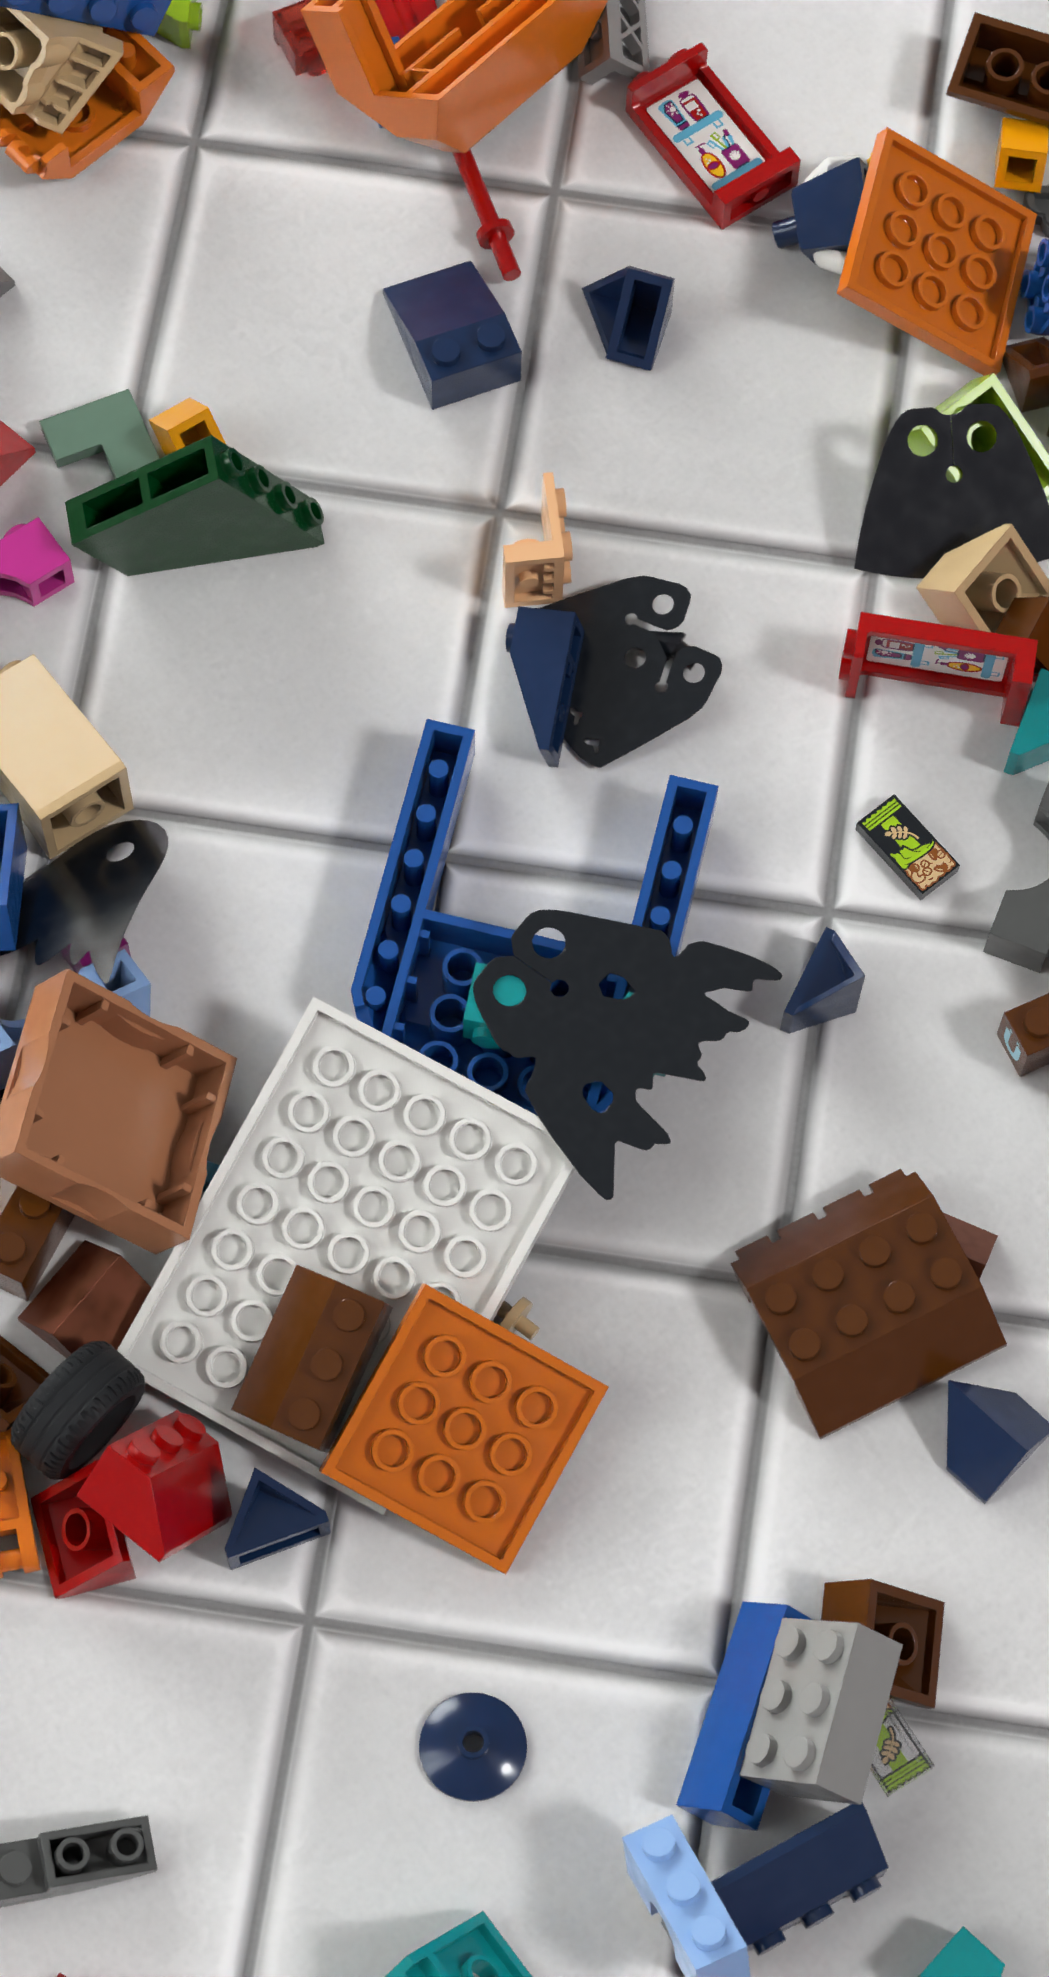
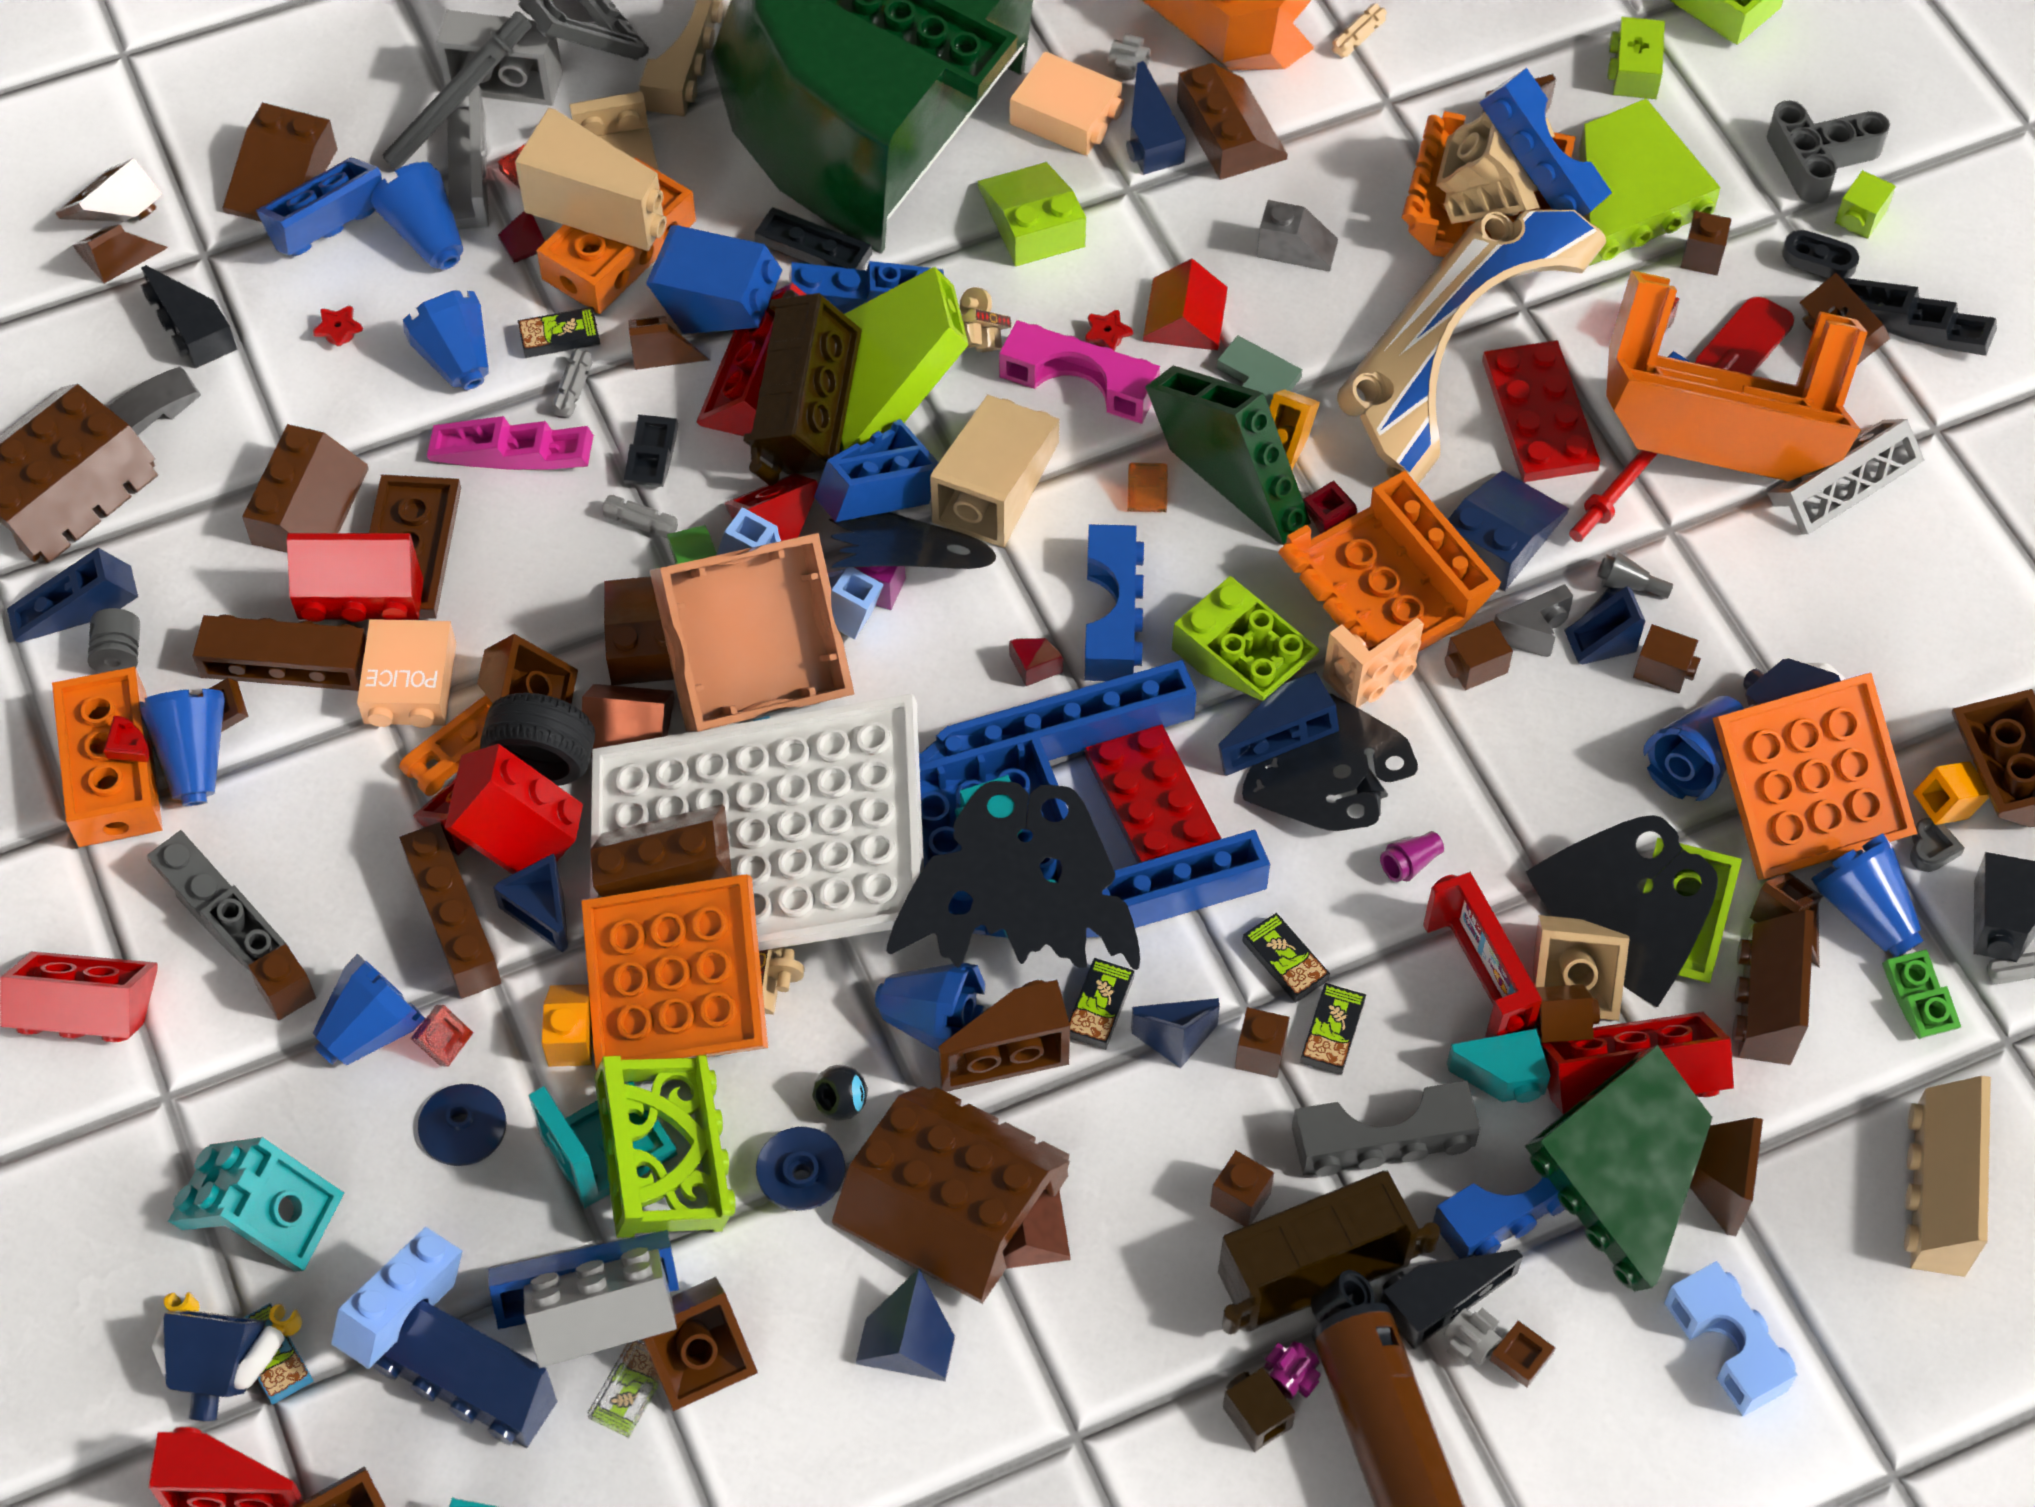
camera: 60 degrees right, 10 degrees down
(167, 626) = (1147, 487): none -> clear orange slope
(179, 1610) = (450, 910): none -> reddish brown arch
(188, 1845) = (282, 981): none -> reddish brown brick
(202, 280) = (1405, 362): none -> tan panel
(239, 712) = (1112, 564): none -> blue arch
(291, 1778) = (363, 1015): none -> blue cone
(300, 859) = (1035, 659): none -> dark red slope
(321, 471) = (1329, 506): none -> dark red slope
(336, 208) = (1540, 411): none -> red plate
(363, 1709) = (442, 1035): none -> clear red plate
(430, 1568) = (567, 1026): none -> light orange slope
(432, 652) = (1240, 641): none -> lime slope
(444, 461) = (1393, 567): none -> orange slope
(550, 849) = (1151, 794): none -> red plate
(582, 264) = (1621, 571): none -> dark grey cone
(588, 383) = (1531, 622): none -> flat silver slope
(589, 451) = (1478, 655): none -> reddish brown brick
(605, 1639) = (580, 1147): none -> teal bracket
(637, 1503) = (630, 1191): none -> lime fence
(653, 1202) = (931, 1001): none -> blue cone
(692, 1345) = (840, 1092): none -> black piece
(709, 137) = (1792, 592): red panel -> none
(709, 291) = (1667, 659): none -> reddish brown brick
(747, 1120) = (1012, 1038): none -> reddish brown slope
(753, 1052) = (1100, 1003): none -> tile
(755, 1408) = (795, 1151): none -> dark blue dish
(770, 658) = (1409, 856): none -> magenta cone
(802, 840) = (1286, 957): none -> tile
(829, 333) = (1687, 752): none -> blue cone
(890, 918) = (1262, 1042): none -> reddish brown brick

